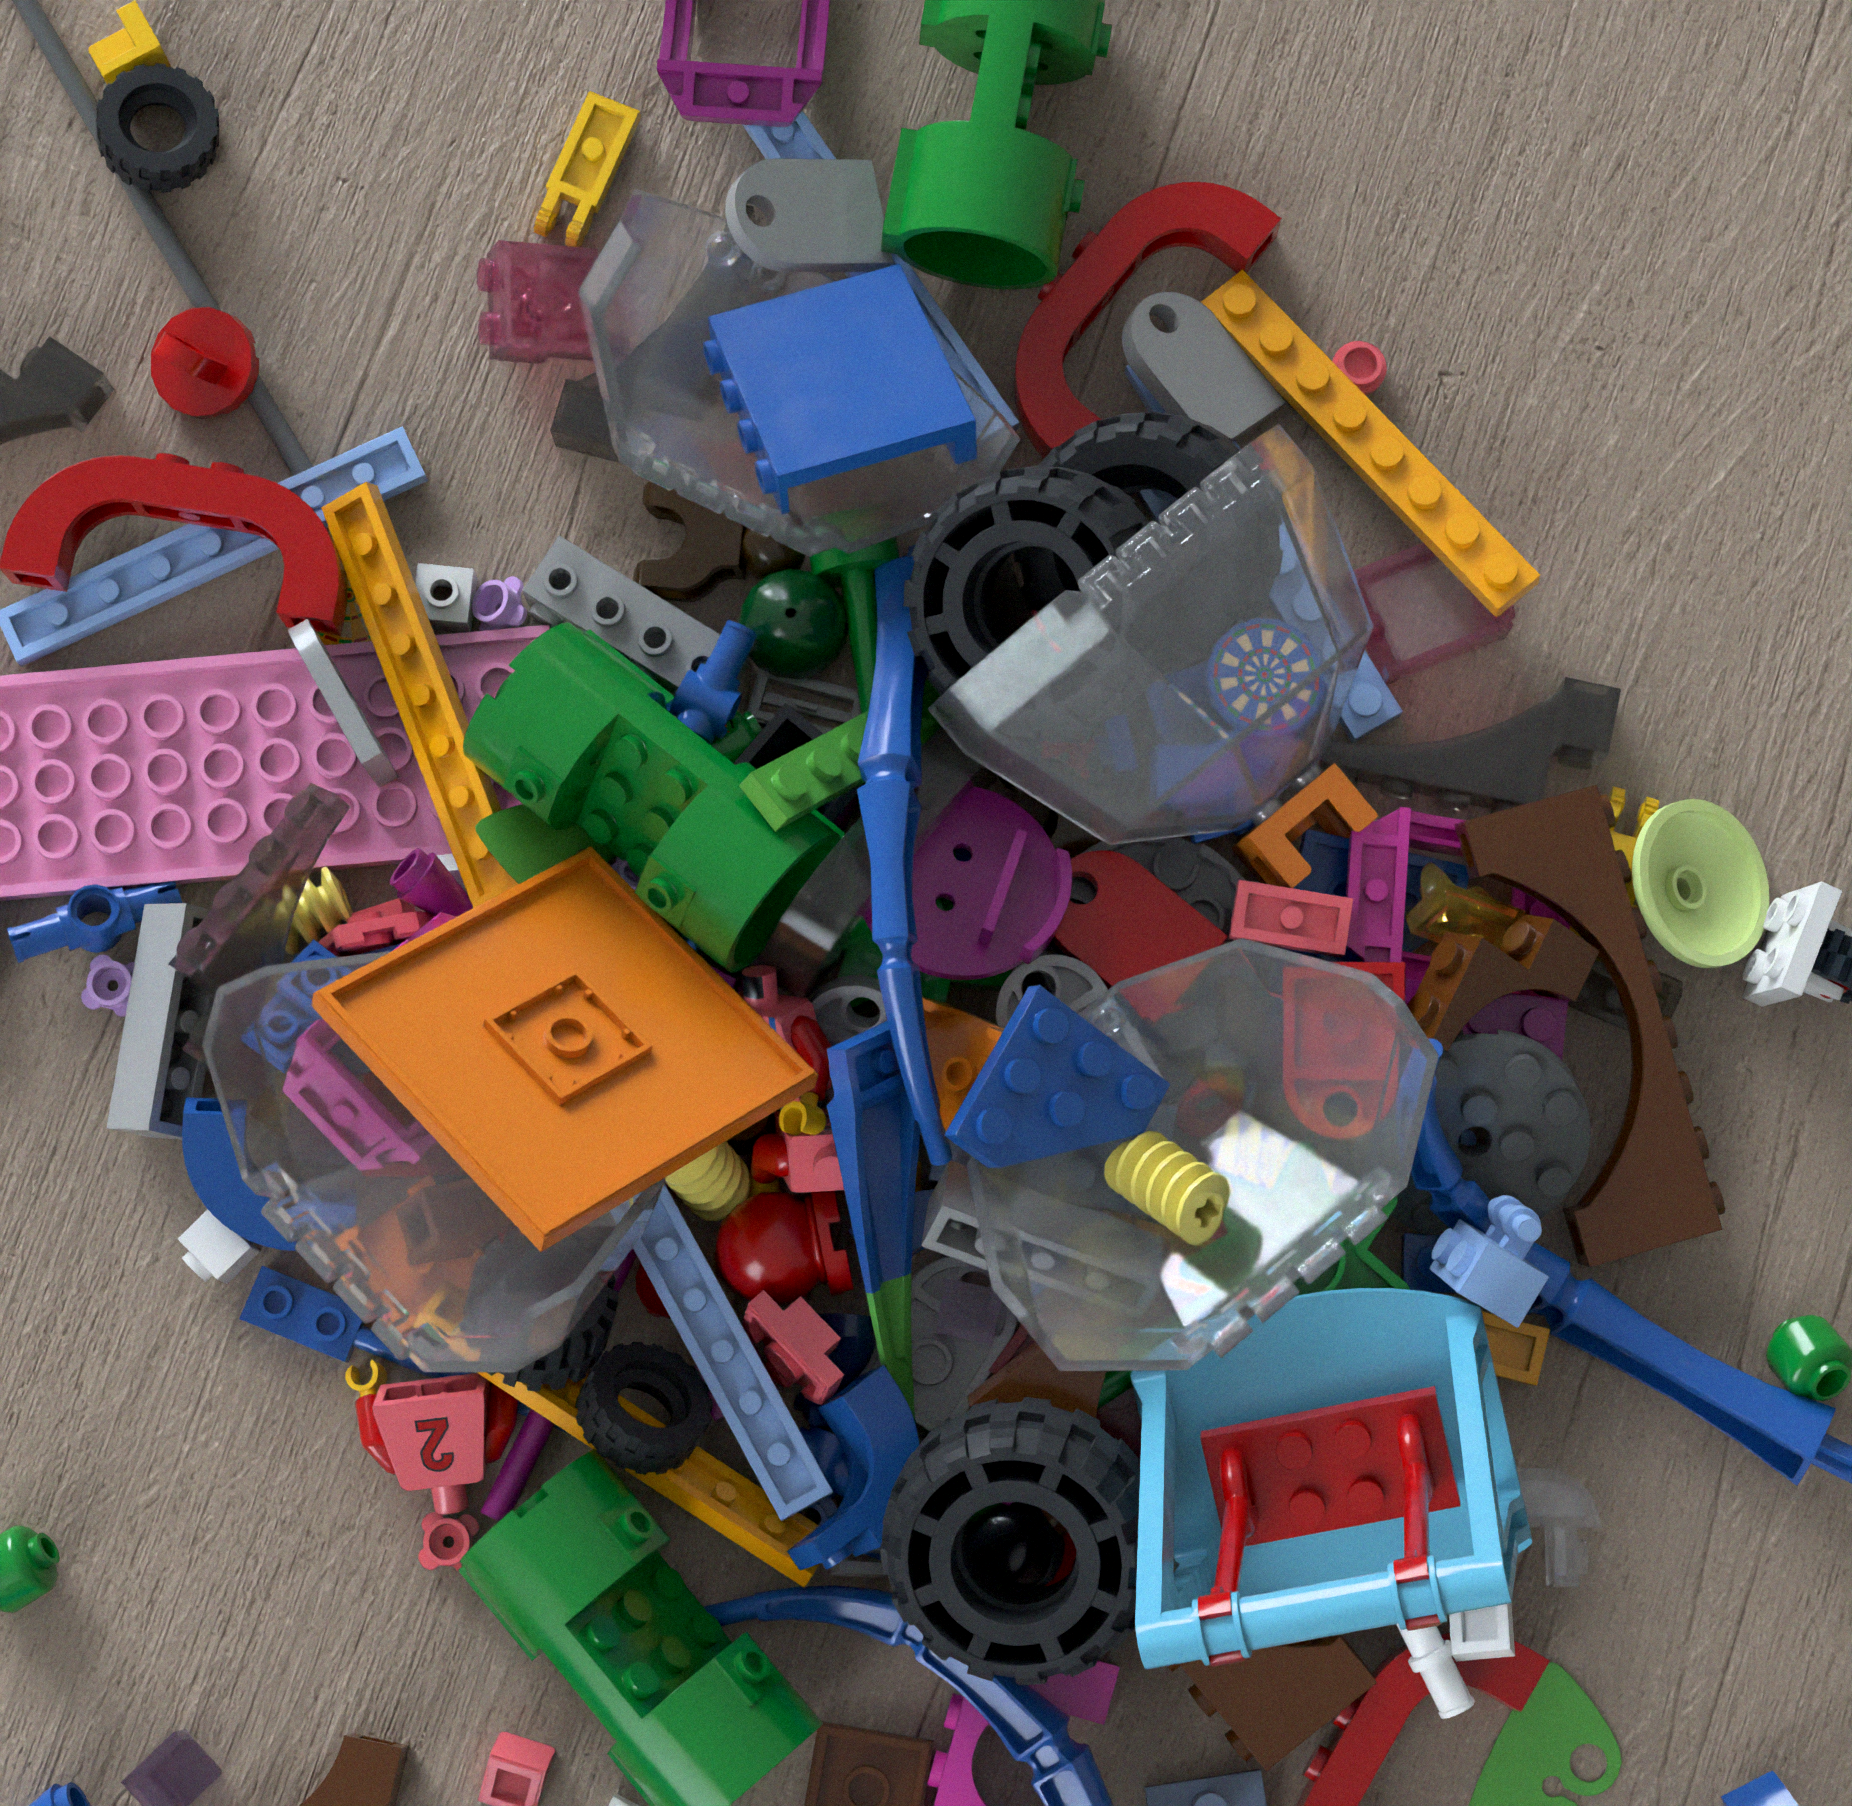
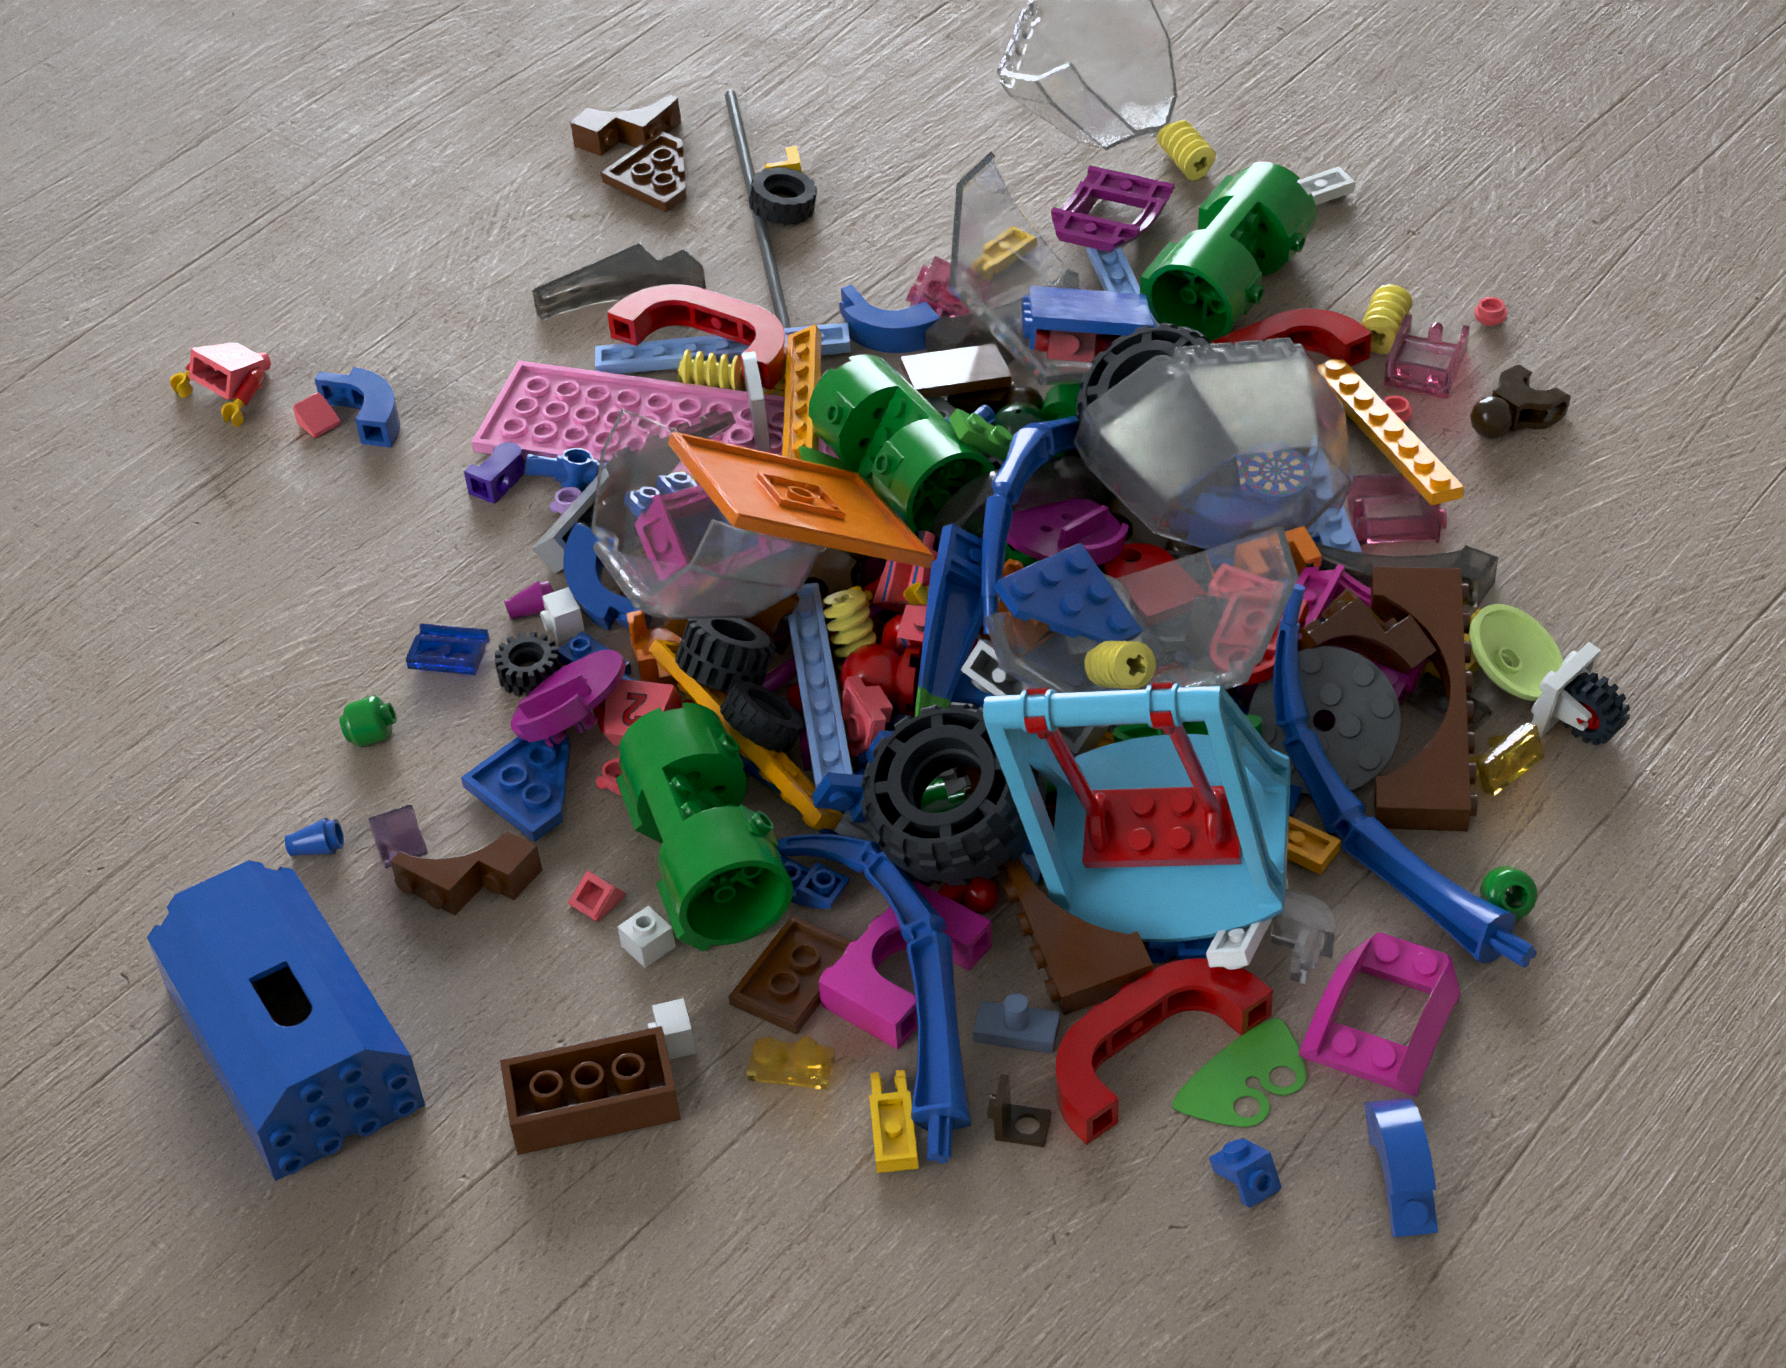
camera: 25 degrees right, 35 degrees down
(65, 1372) = (447, 649): none -> clear blue plate
(153, 1226) = (529, 600): none -> magenta cone
(174, 1354) = (523, 651): none -> black tyre
(204, 362) = (757, 279): red tile -> none
(223, 621) = (711, 372): none -> light yellow piece
(315, 1597) = (524, 784): none -> blue plate
(337, 1481) = (568, 698): none -> magenta piece
(473, 422) = (886, 329): none -> blue arch
(633, 538) = (956, 371): none -> tile
(816, 215) = (1099, 267): light grey tile -> none
(819, 1654) = (814, 886): none -> blue slope
(1280, 157) = (1385, 316): none -> light yellow piece
(1375, 232) = (1424, 363): none -> clear pink window
(1435, 1663) = (1193, 957): white pin -> none
(1442, 79) = (1490, 311): none -> coral plate
(1493, 1265) = (1309, 748): light blue brick -> none
(1544, 308) = (1517, 406): none -> dark brown piece
(1688, 1698) = (1371, 1055): none -> dark pink wedge
(1744, 1064) = (1508, 757): none -> clear yellow tile

